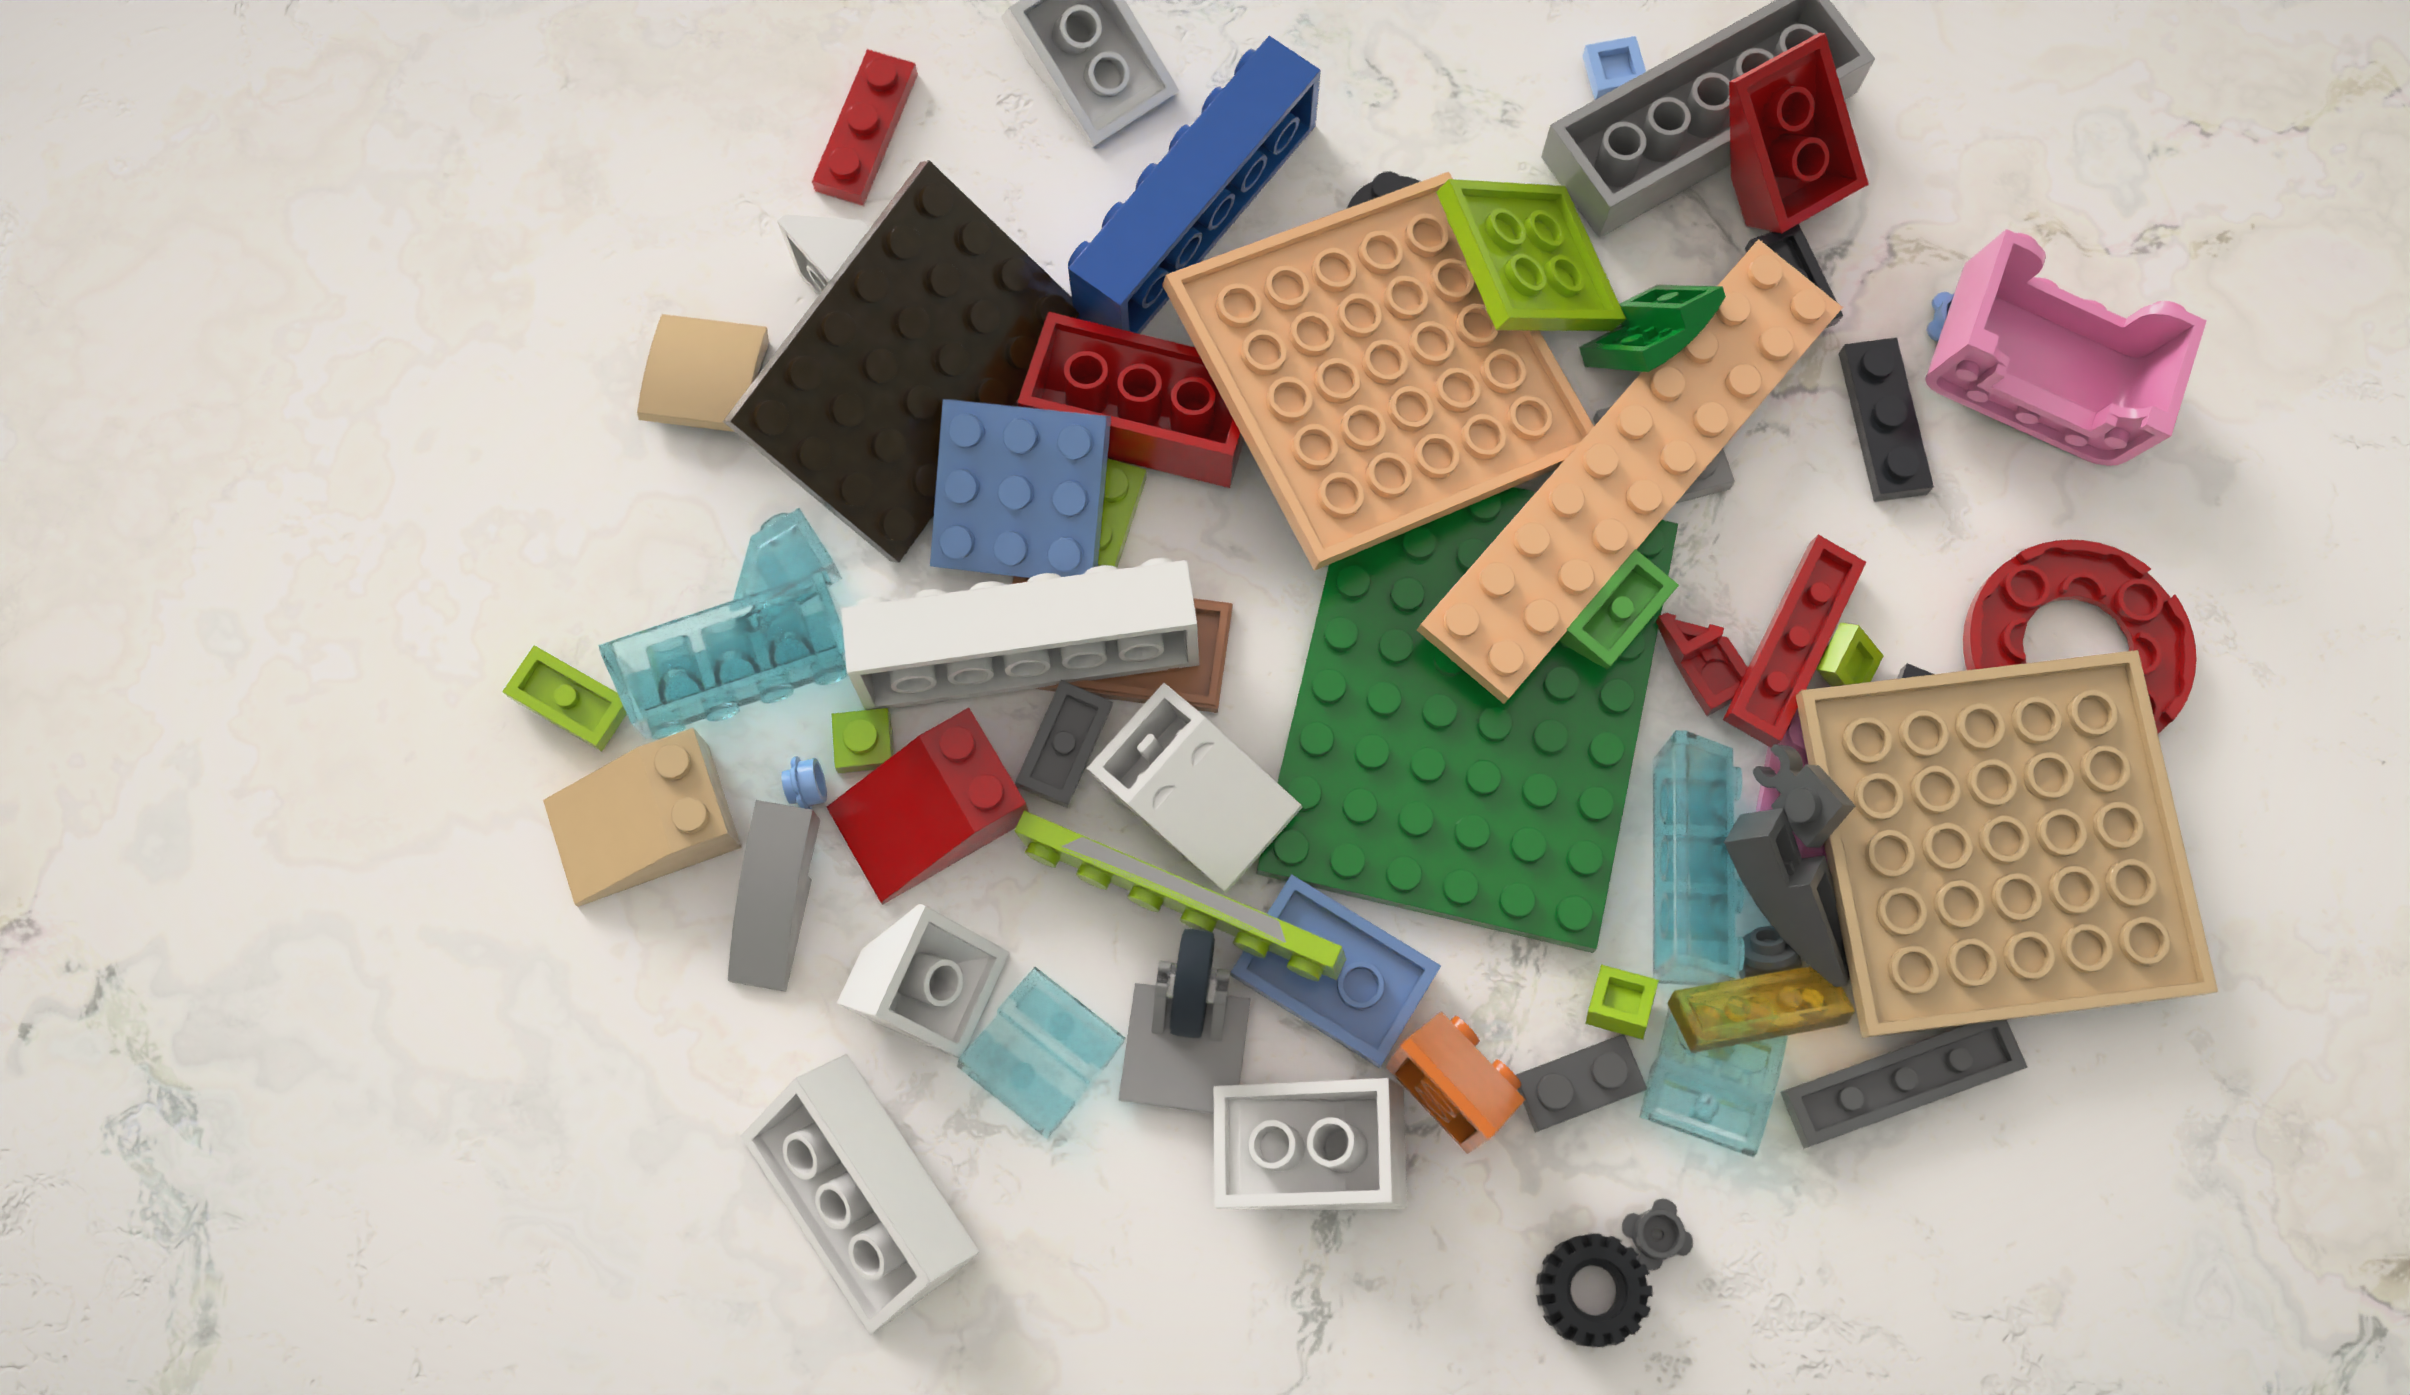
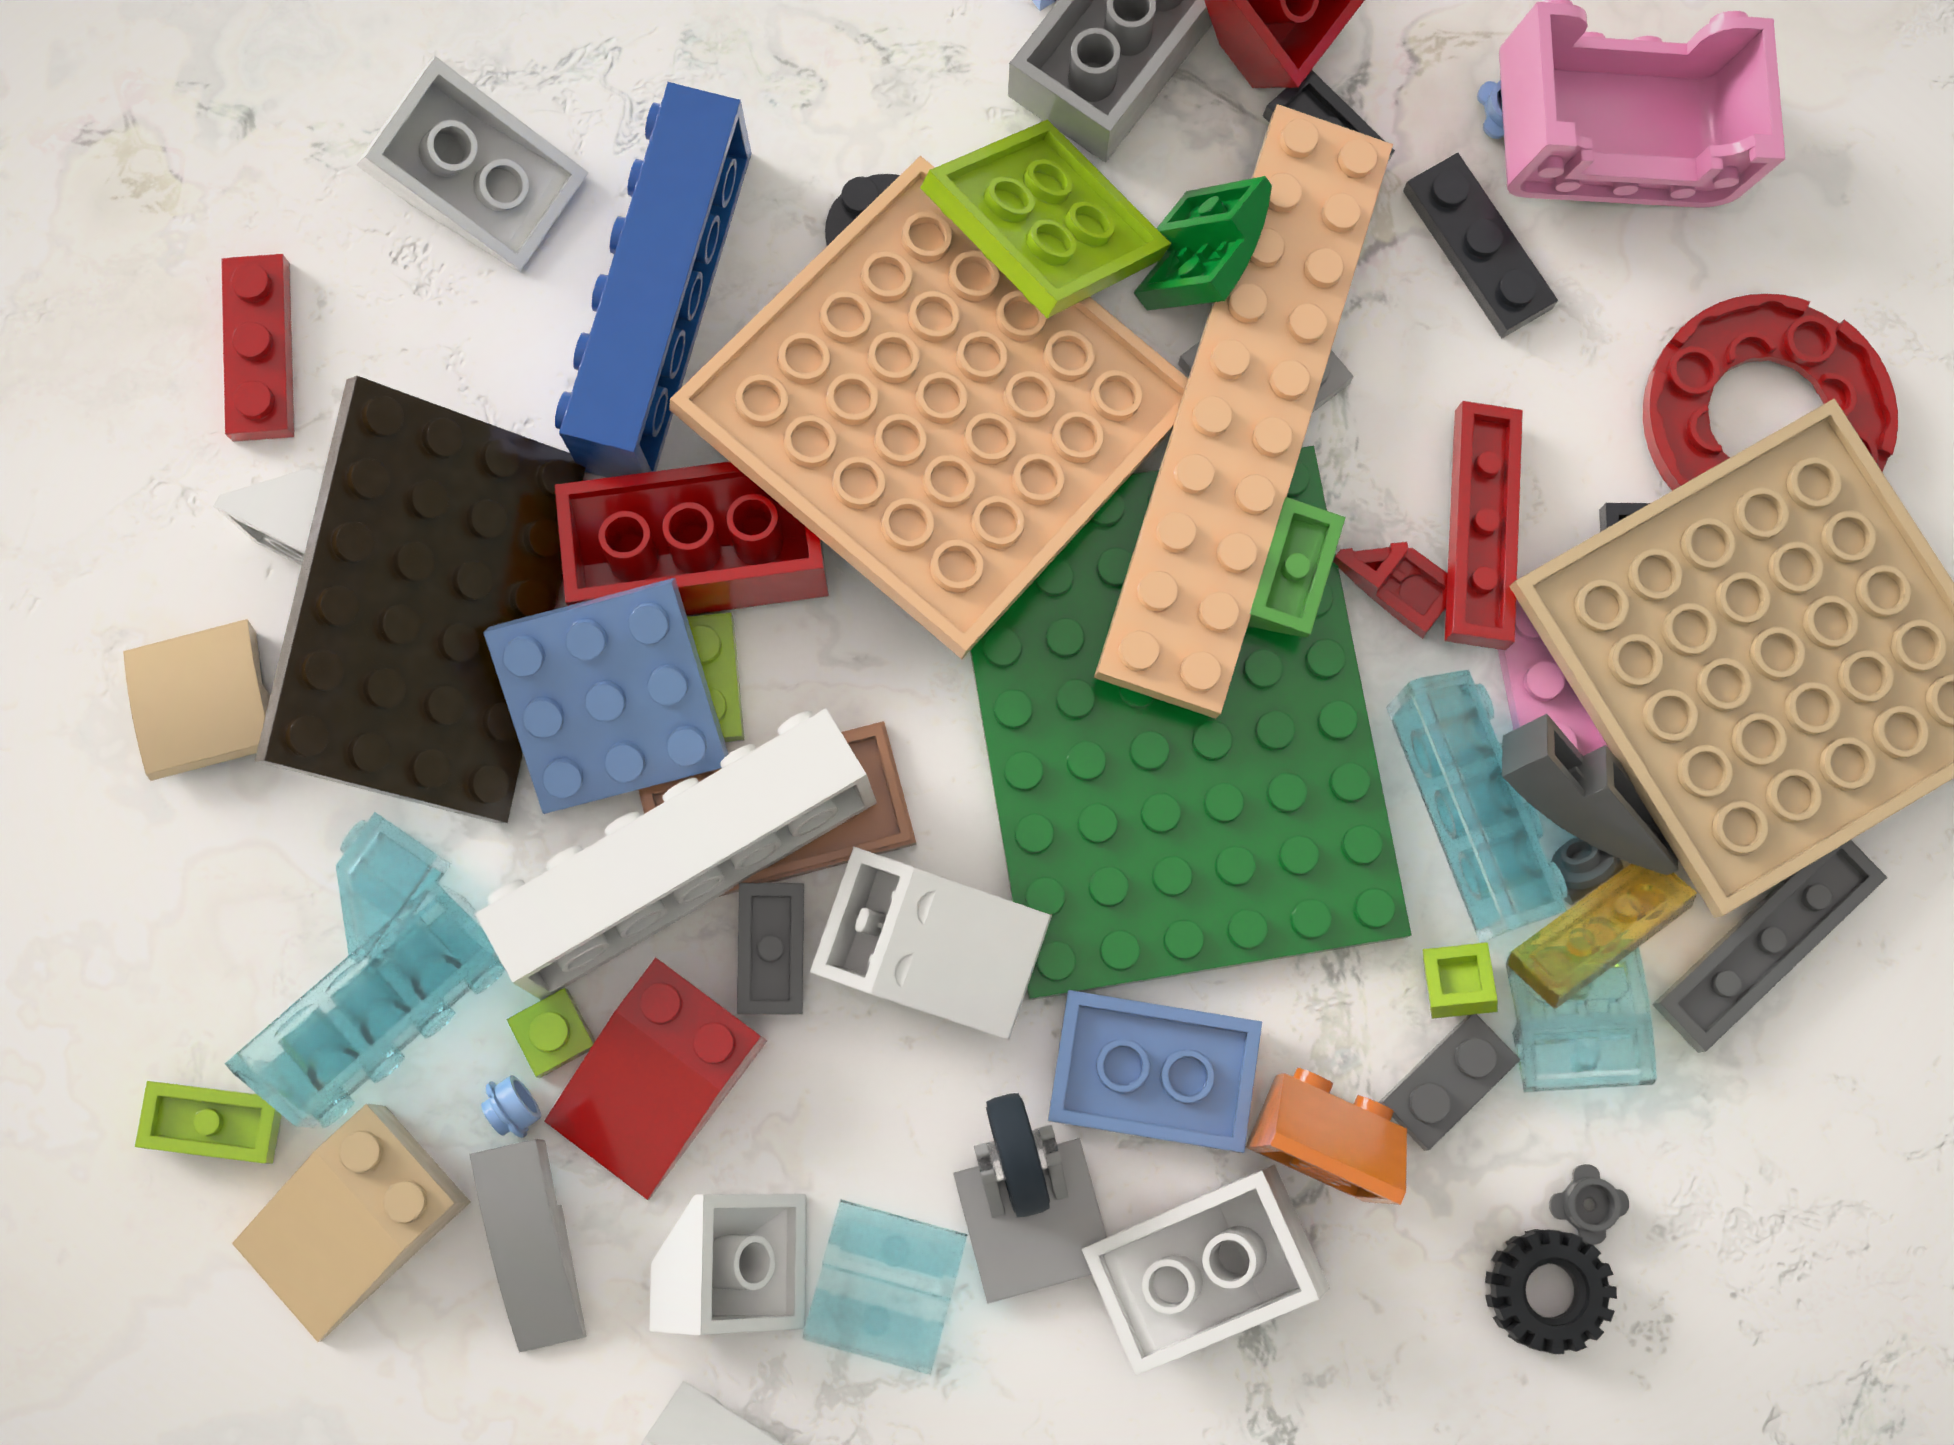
camera: 25 degrees left, 5 degrees up
(1199, 906) = (992, 1069): lime plate -> none
(1807, 794) = (1565, 690): dark grey plate -> none
(1849, 657) = (1546, 522): lime plate -> none

